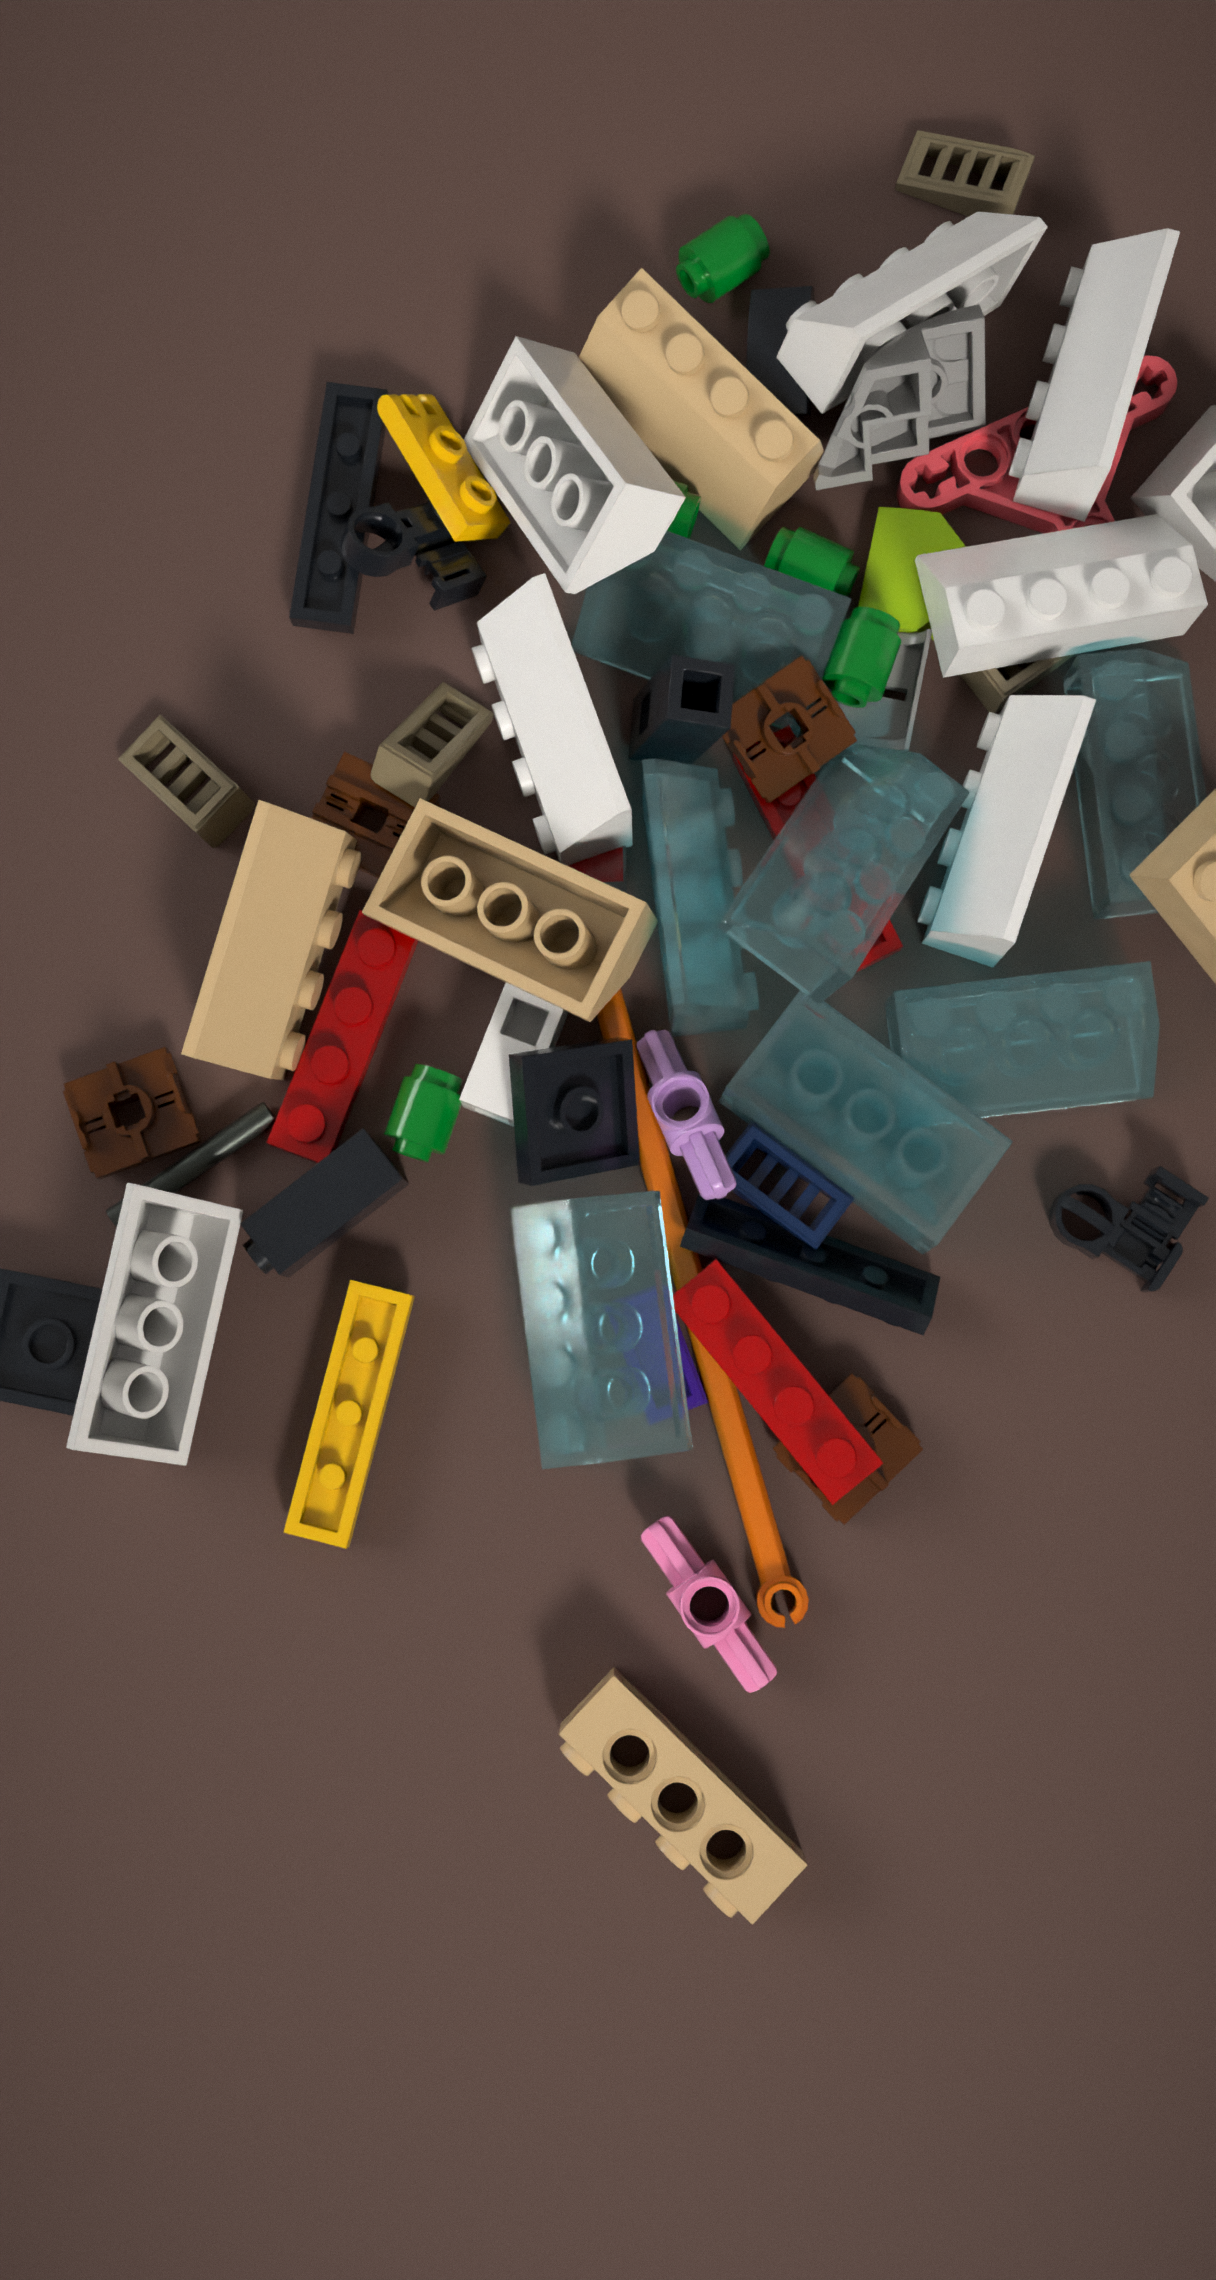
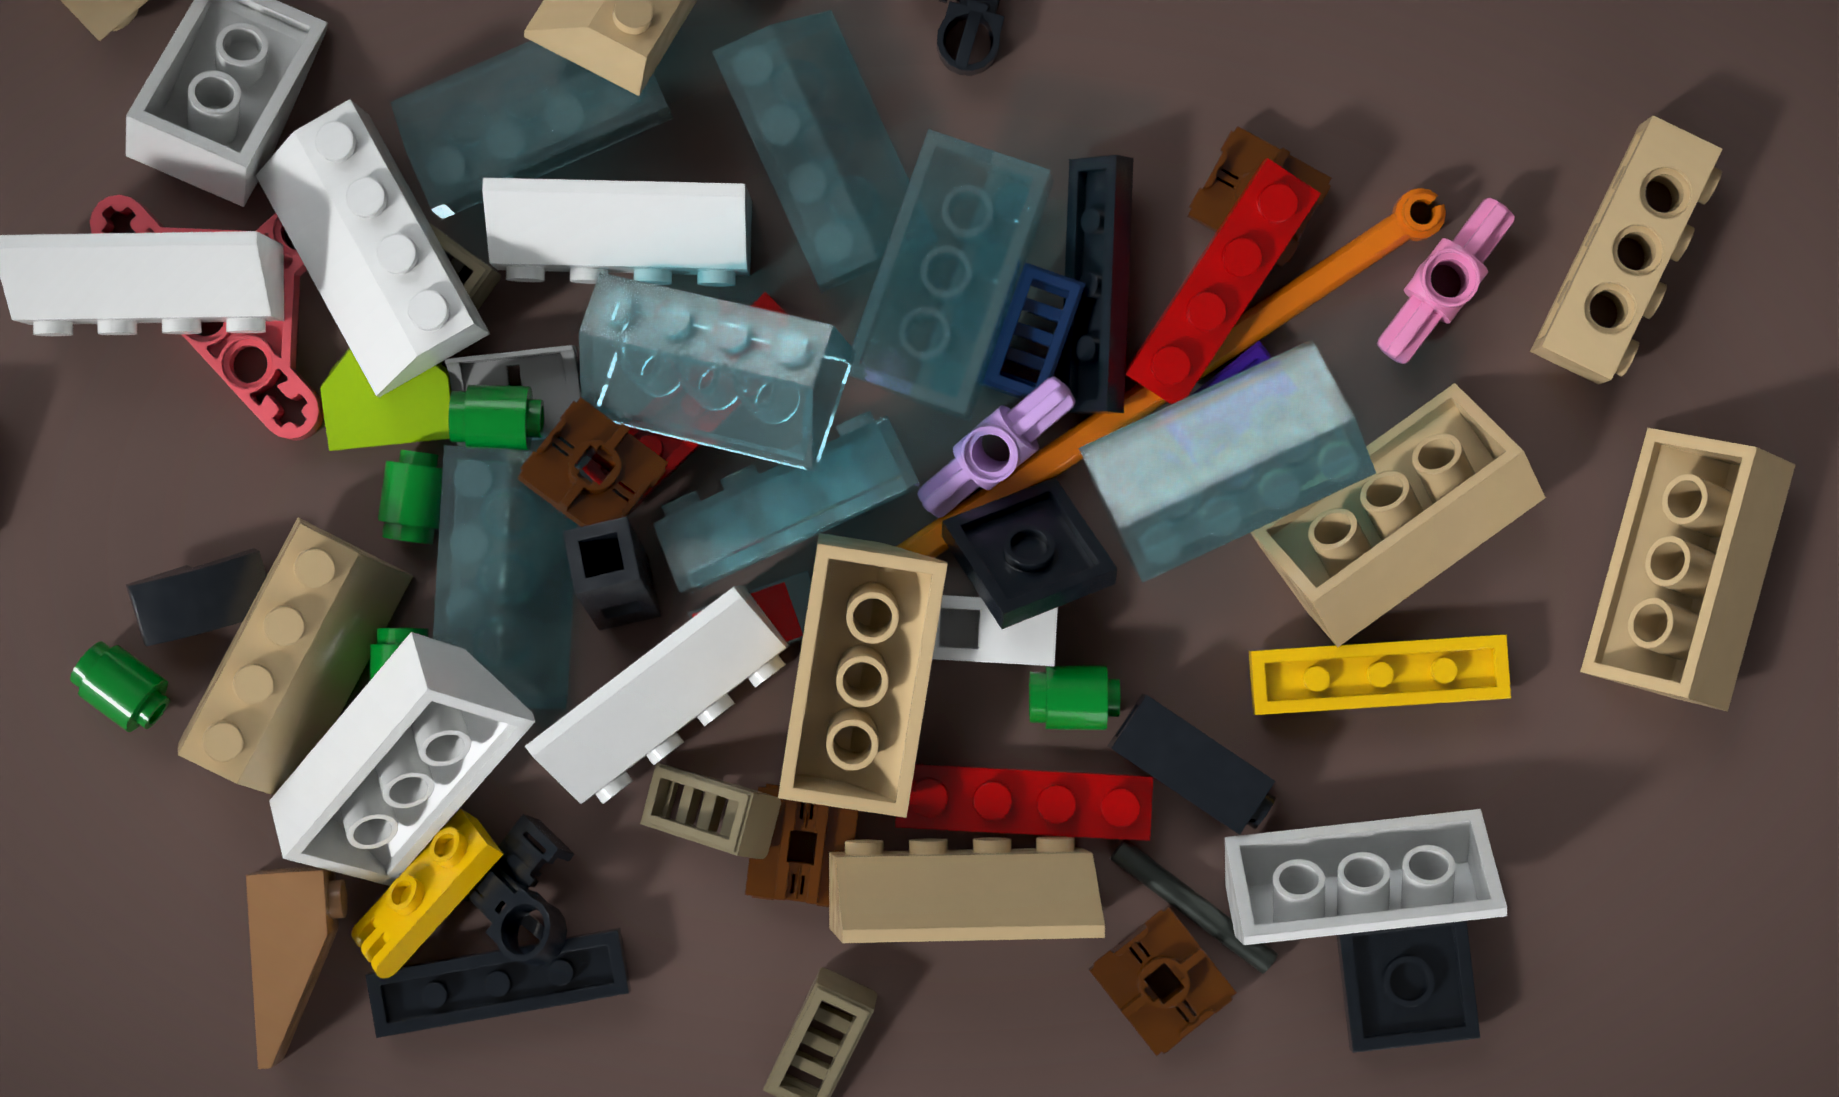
camera: 110 degrees left, 5 degrees up
(351, 1751) = (1688, 567): none -> tan slope
(439, 332) = (291, 933): none -> medium nougat slope
(502, 1522) = (1437, 494): none -> tan slope
(907, 393) = (206, 446): light grey slope -> none
(947, 272) = (124, 486): white slope -> none

